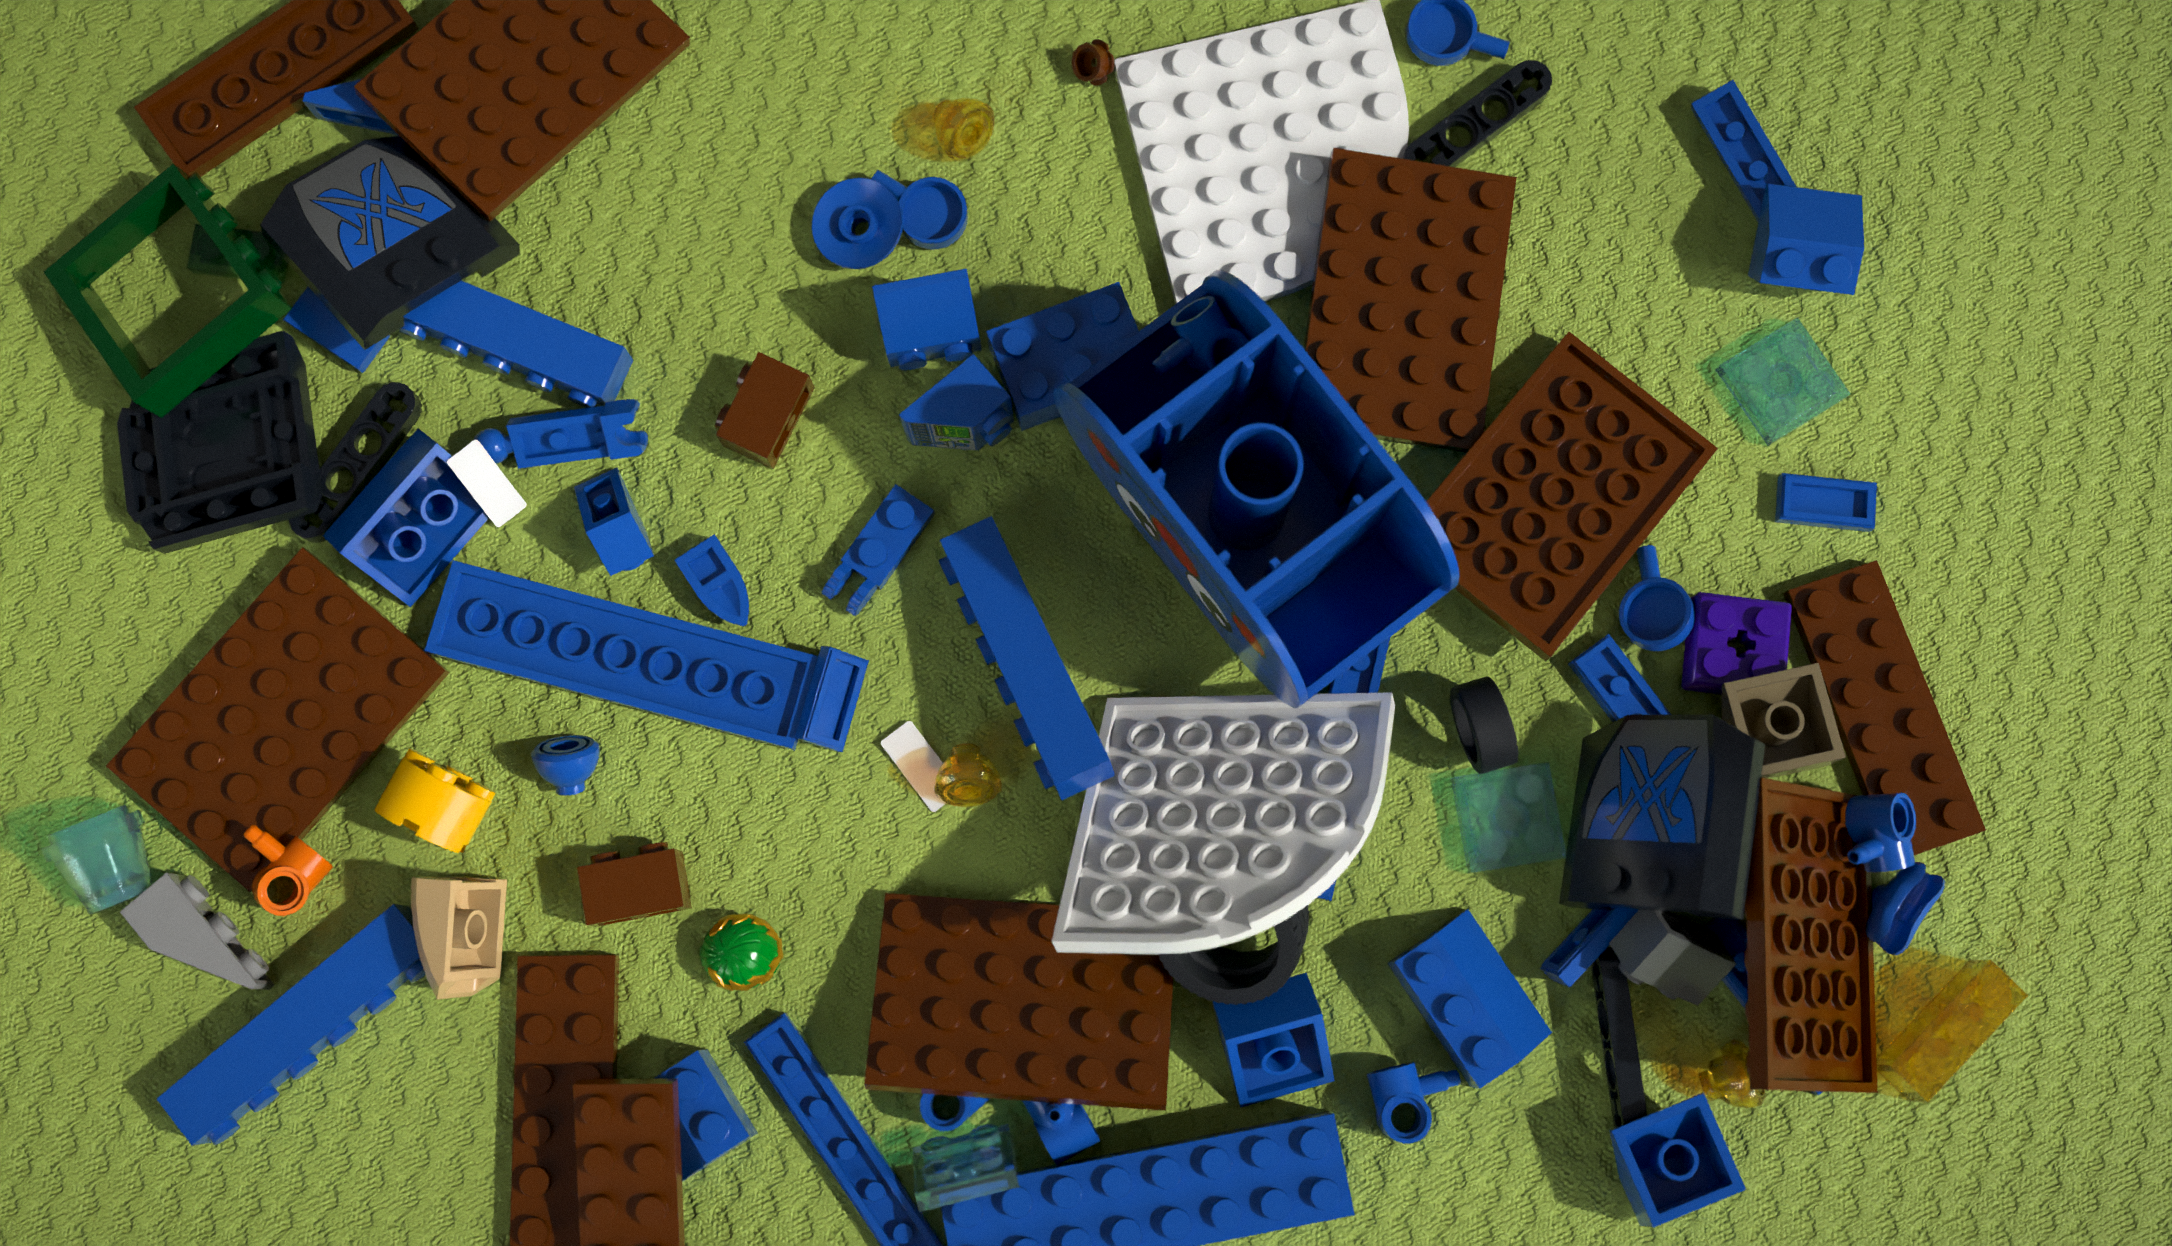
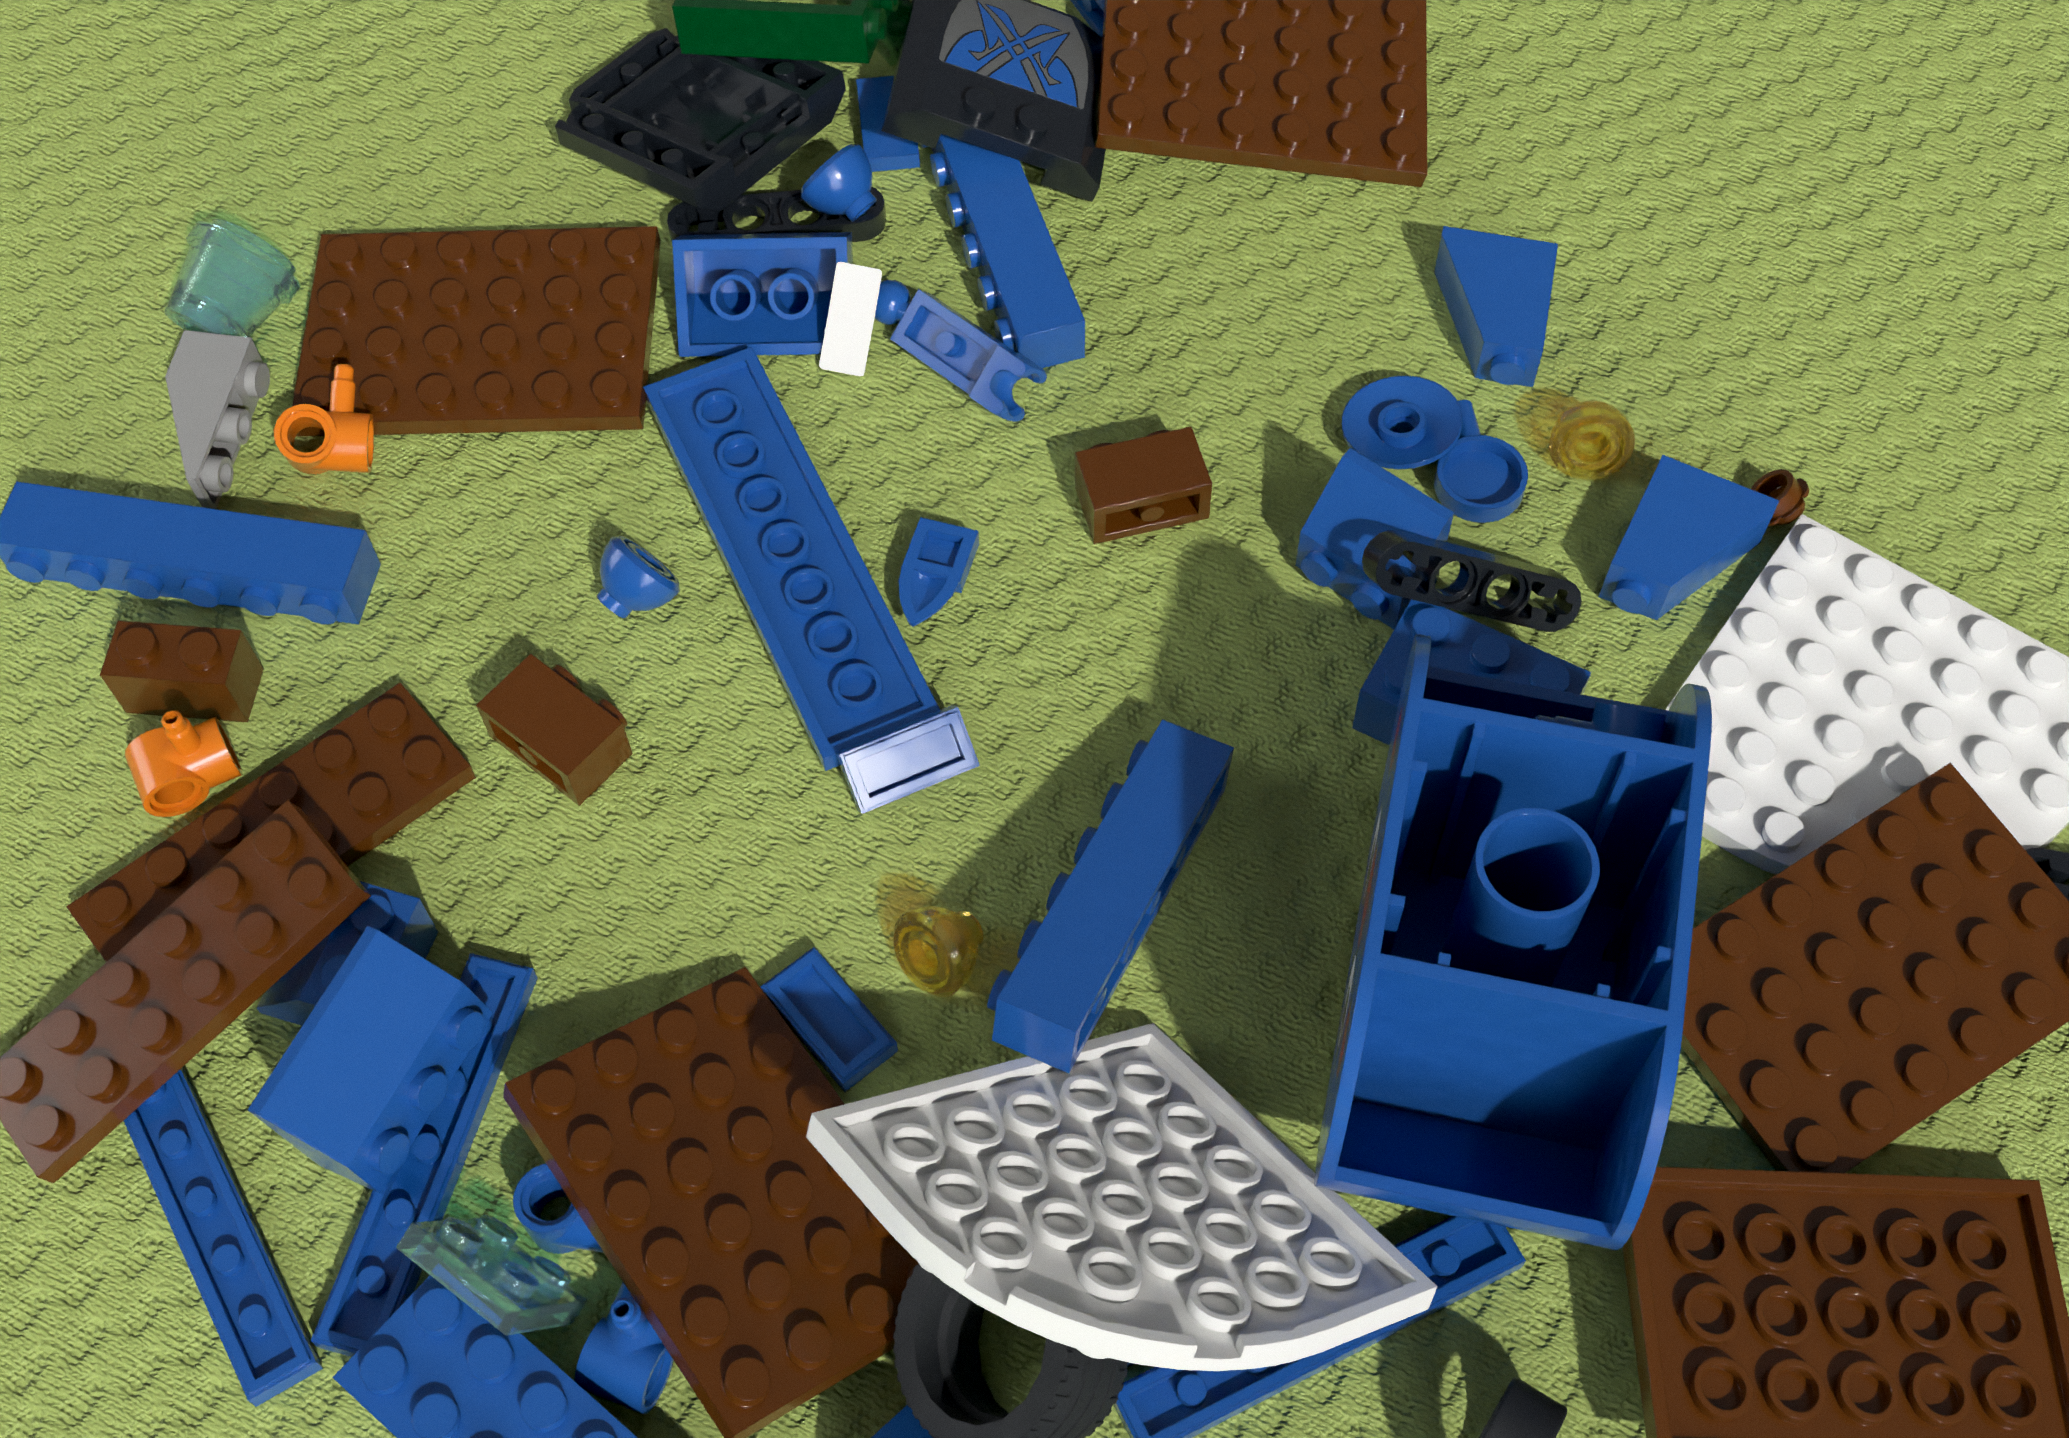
camera: 50 degrees right, 20 degrees down
(379, 406) = (841, 184): none -> blue brick
(396, 1084) = (183, 670): none -> reddish brown brick
(434, 801) = (496, 491): yellow brick -> none
(459, 932) = (378, 607): tan slope -> none
(467, 1127) = (180, 764): none -> orange piece
(613, 522) = (907, 446): blue slope -> none
(741, 952) = (567, 880): green hair -> none
(785, 1147) = (372, 1061): none -> blue slope
(823, 86) = (1497, 300): none -> blue slope
(880, 546) = (1102, 689): blue hinge -> none
(915, 761) = (917, 884): white sticker -> none
(953, 869) = (829, 1019): none -> blue tile
(960, 411) = (1308, 634): blue slope -> none
(972, 322) = (1471, 586): none -> black beam
(1068, 142) = (1683, 537): none -> blue slope

